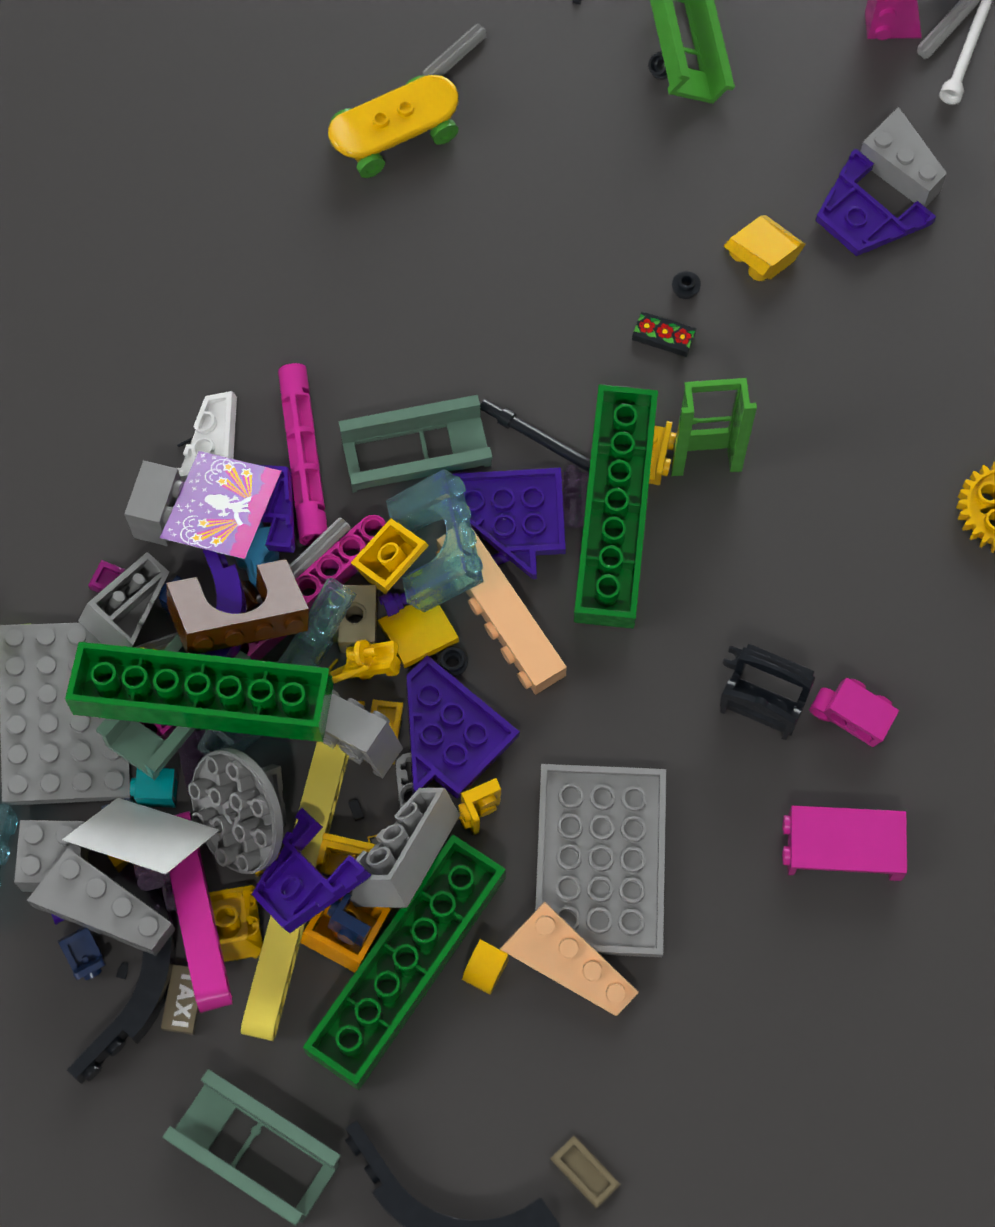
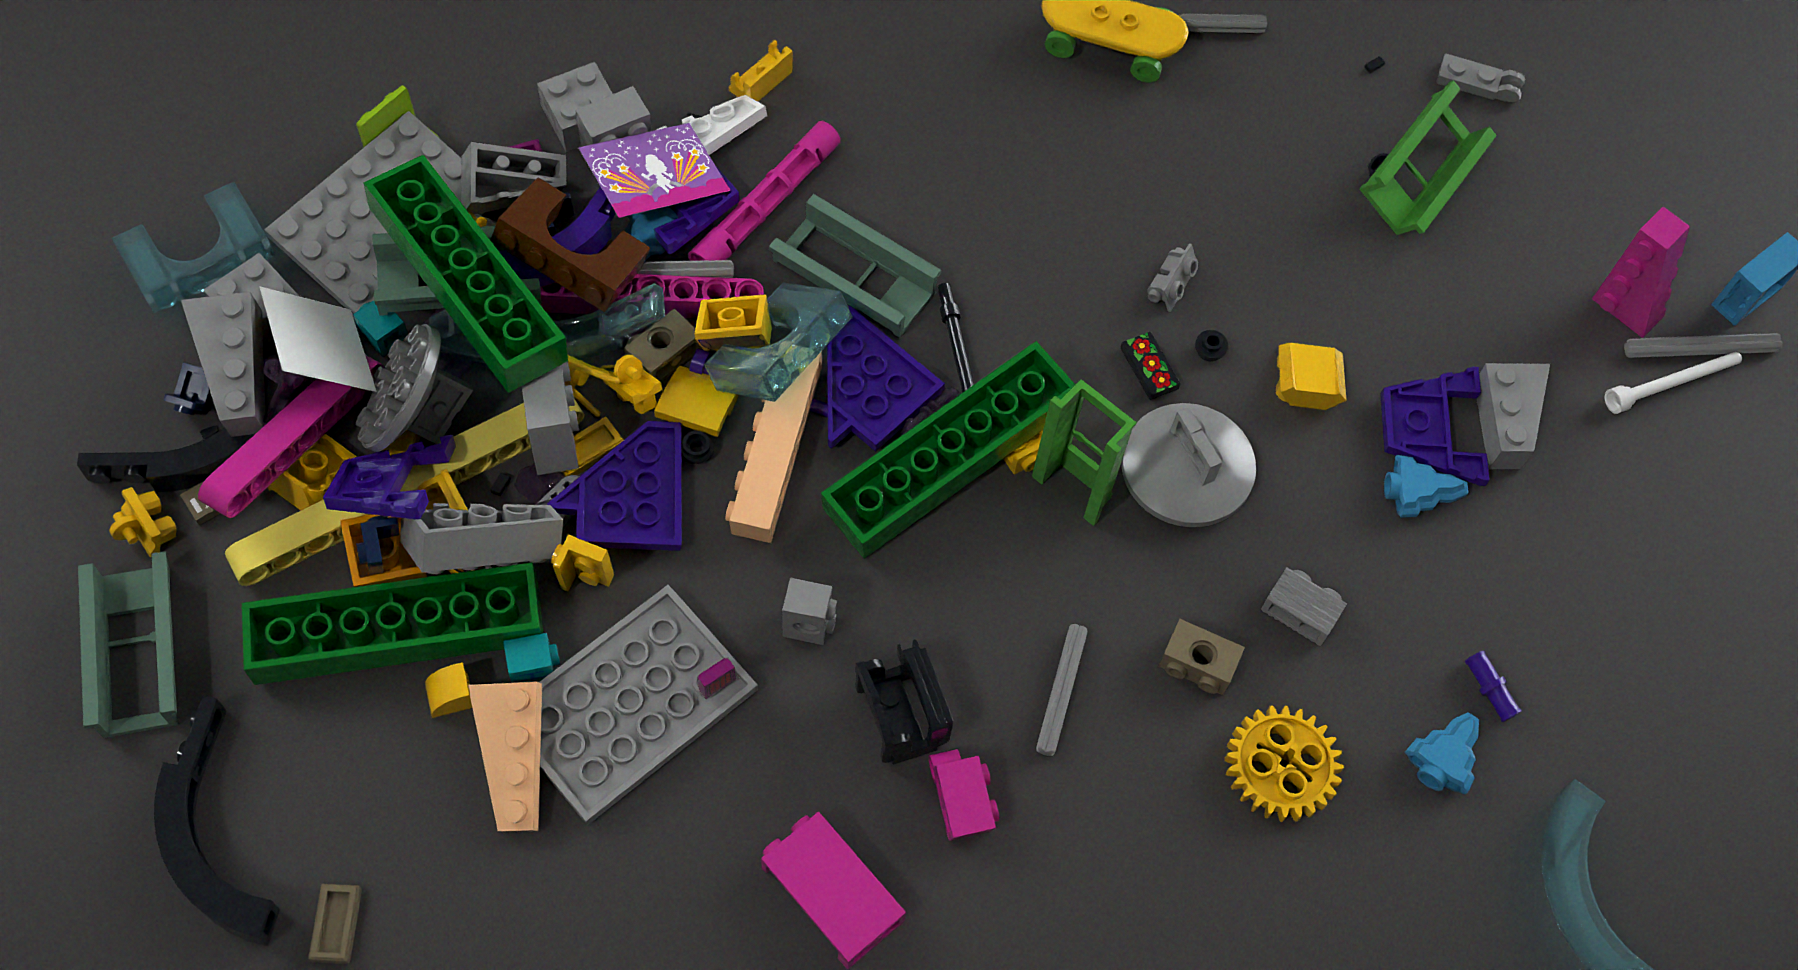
camera: 40 degrees right, 5 degrees down
(100, 510) = (569, 92): none -> light grey brick
(157, 1072) = (136, 524): none -> yellow hips
(198, 370) = (764, 74): none -> yellow hinge
(378, 789) = (535, 486): none -> clear purple slope
(513, 895) = (530, 658): none -> teal brick
(611, 250) = (1180, 267): none -> light grey hinge
(643, 789) = (716, 677): none -> magenta tile
(648, 693) = (808, 611): none -> light grey brick
(776, 370) = (1188, 465): none -> light grey bracket
(837, 590) = (1061, 690): none -> light grey axle
(900, 260) = (1420, 487): none -> dark azure rock
(905, 478) = (1219, 653): none -> dark tan brick
(916, 399) = (1304, 605): none -> light grey brick

